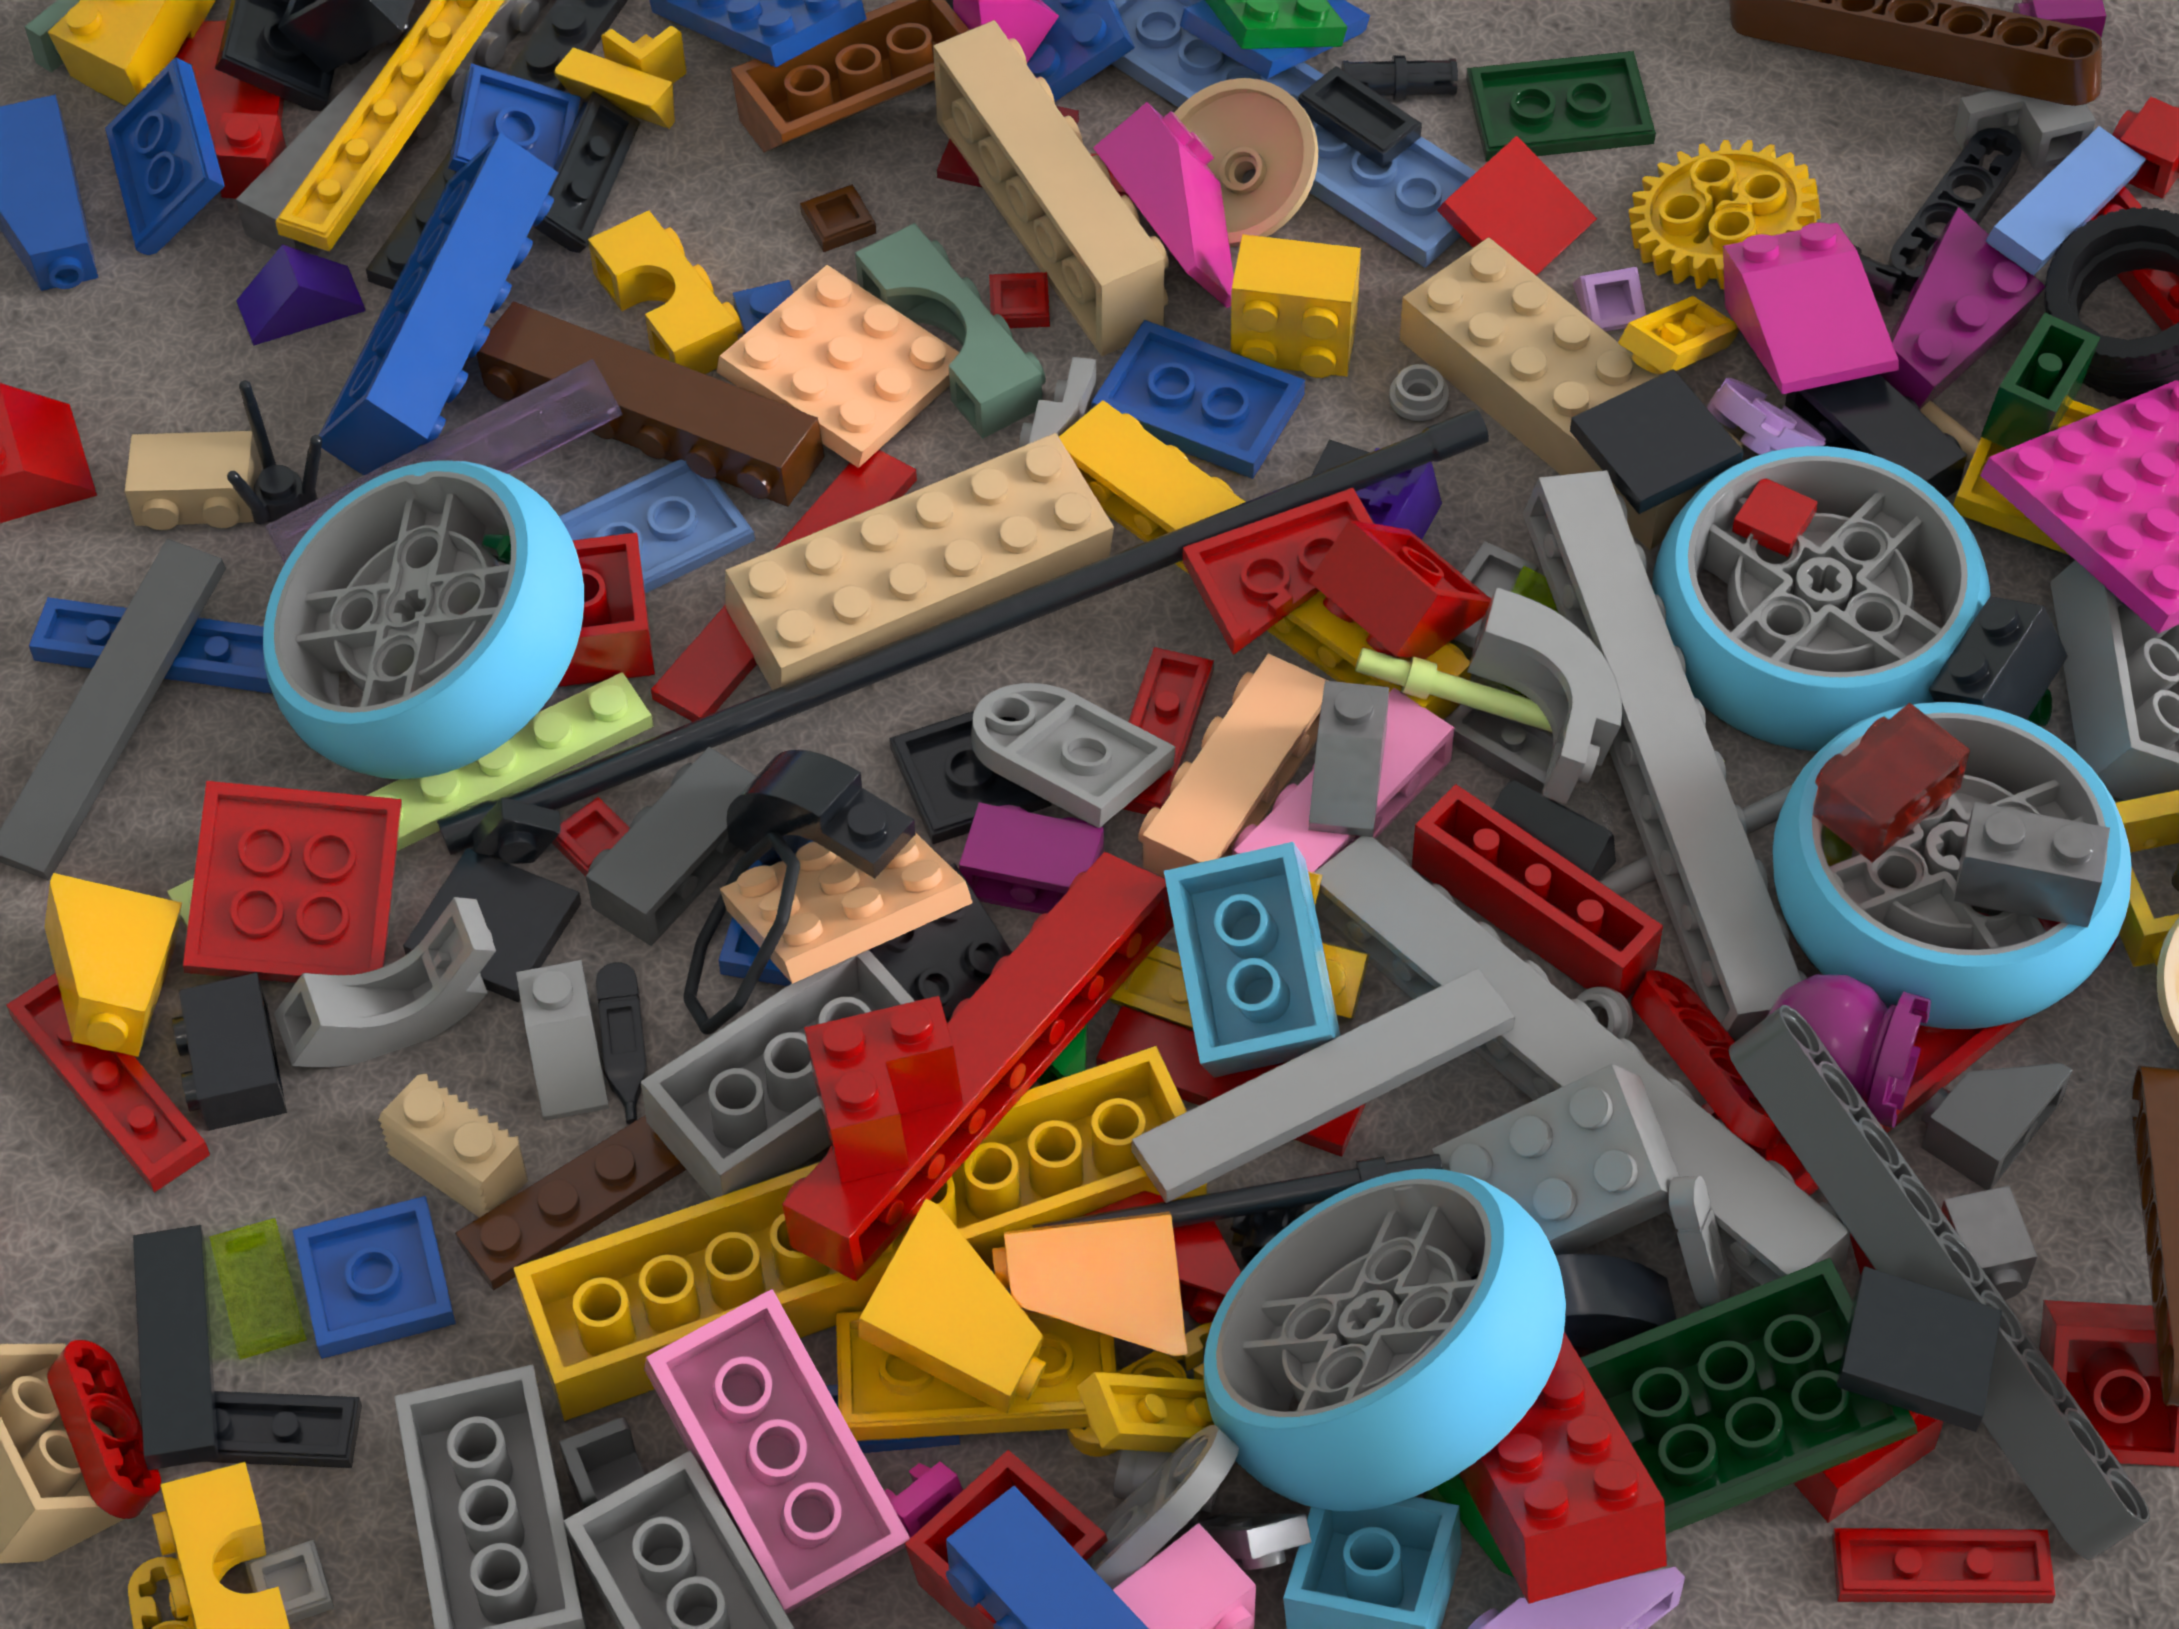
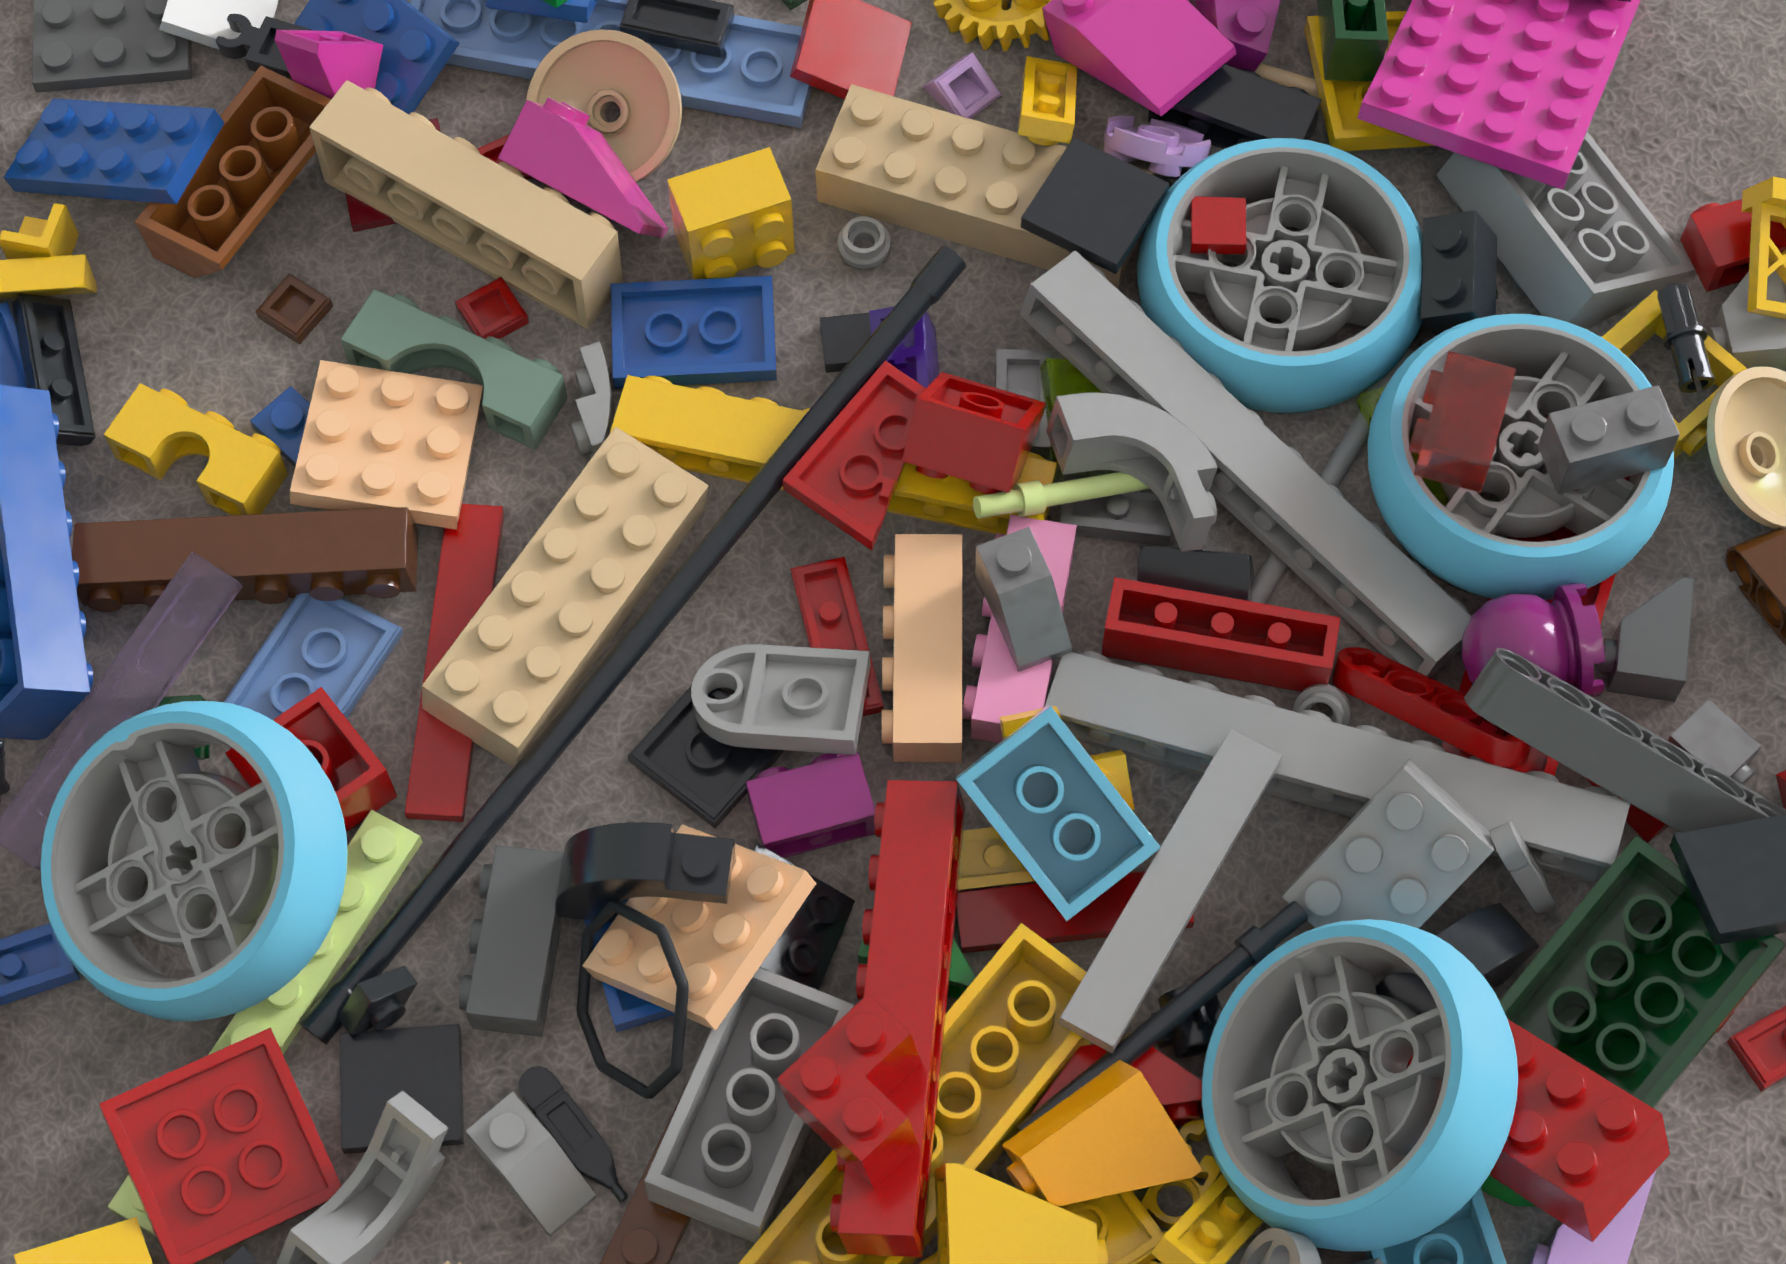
camera: 30 degrees left, 10 degrees up
(589, 833) = (439, 967): red tile -> none

